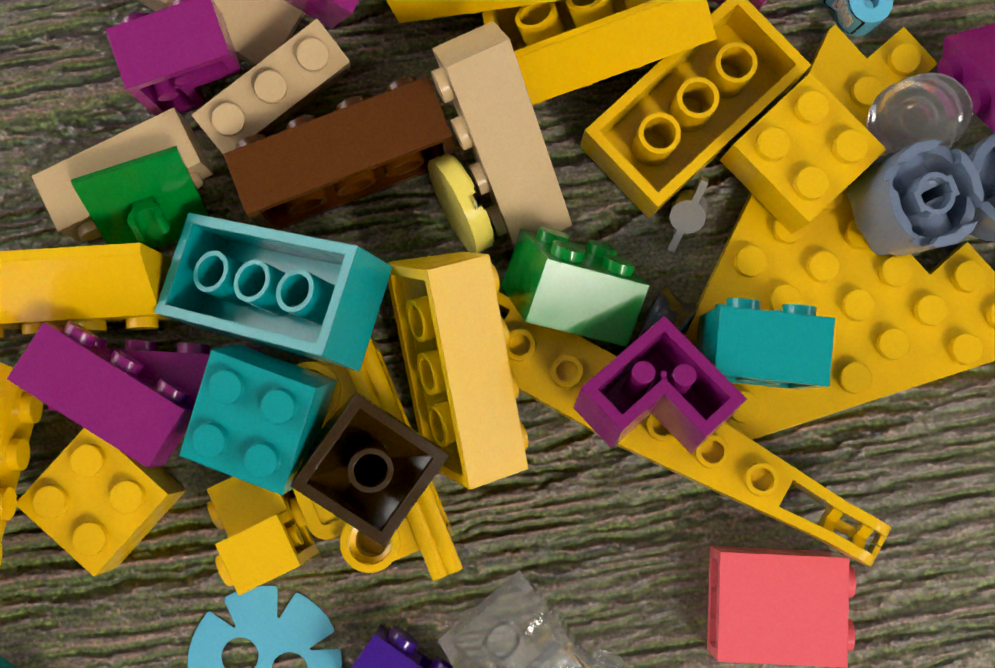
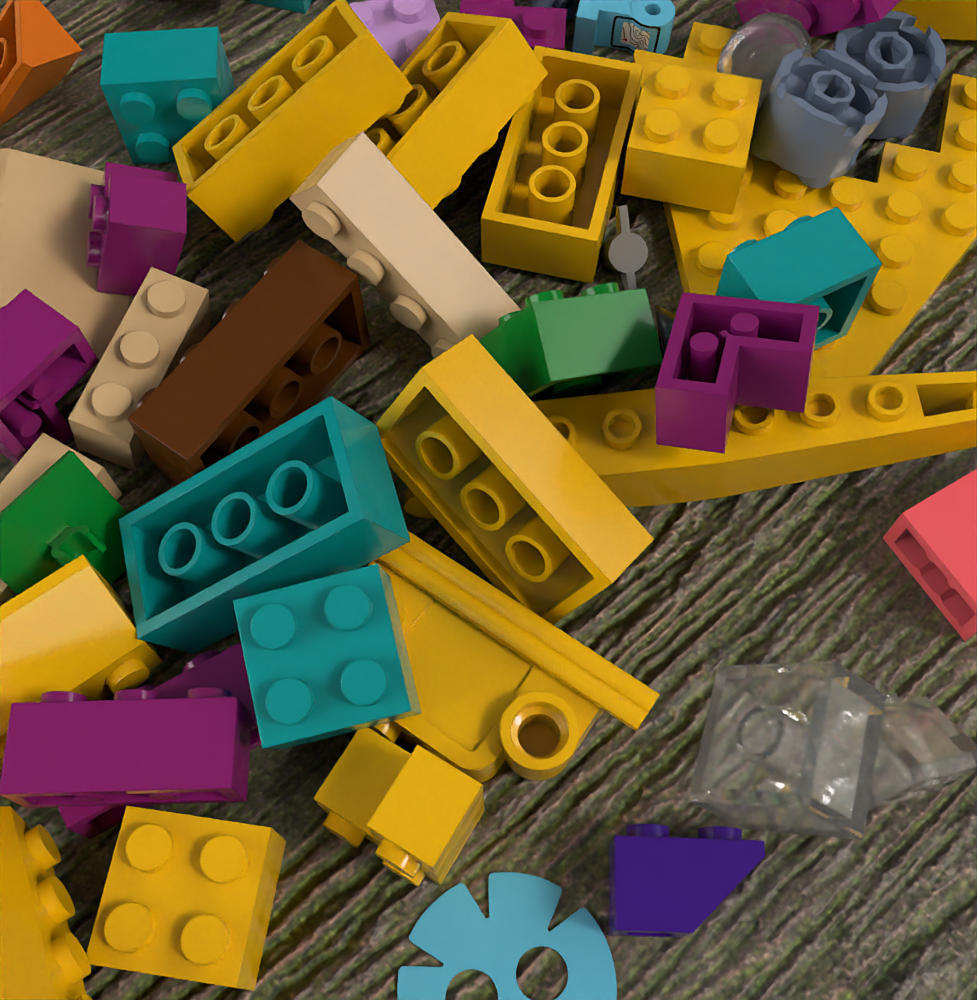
camera: 30 degrees left, 20 degrees down
(368, 468) = (487, 632): dark brown slope -> none
(456, 198) = (393, 345): light yellow tile -> none

